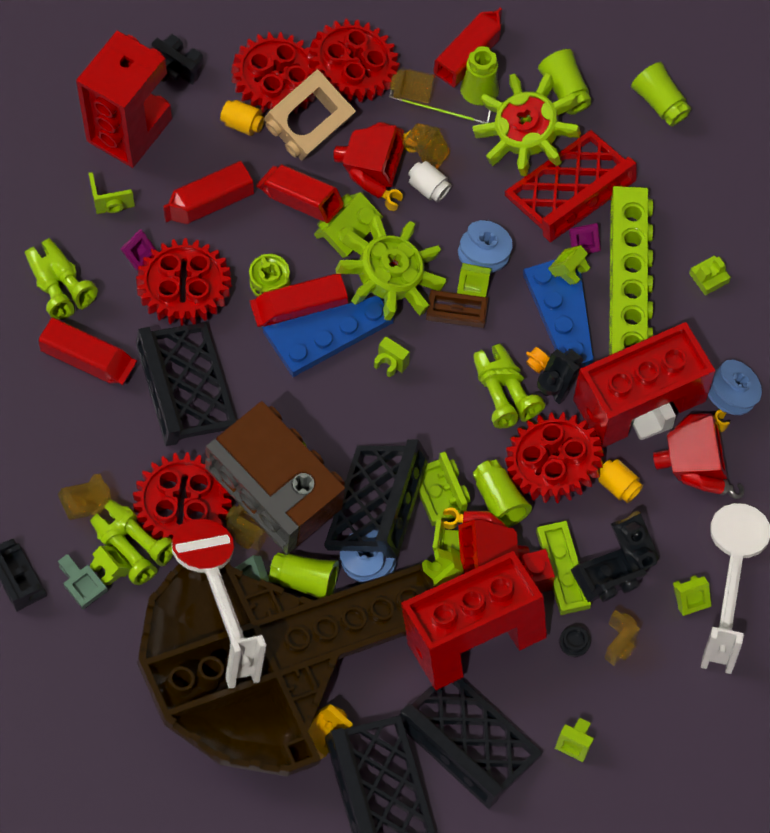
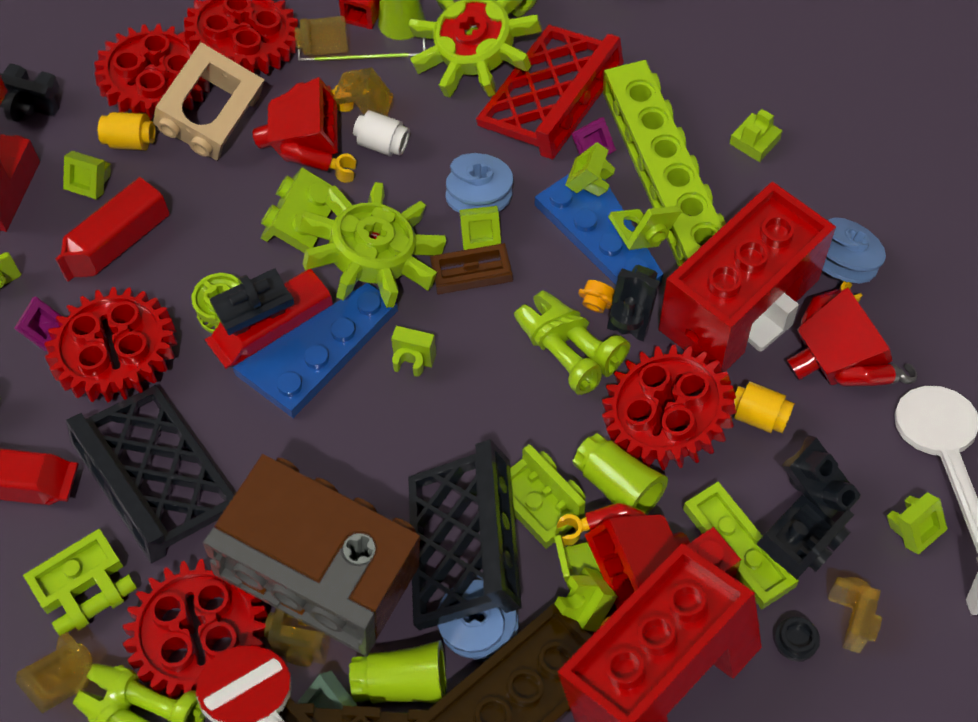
camera: 15 degrees left, 5 degrees down
(112, 435) = (72, 573): none -> lime plate
(202, 143) = (85, 174): none -> lime tile
(290, 287) = (251, 301): none -> black hips
(301, 192) = (229, 190): red piece -> none
(595, 323) = (651, 228): none -> lime bracket

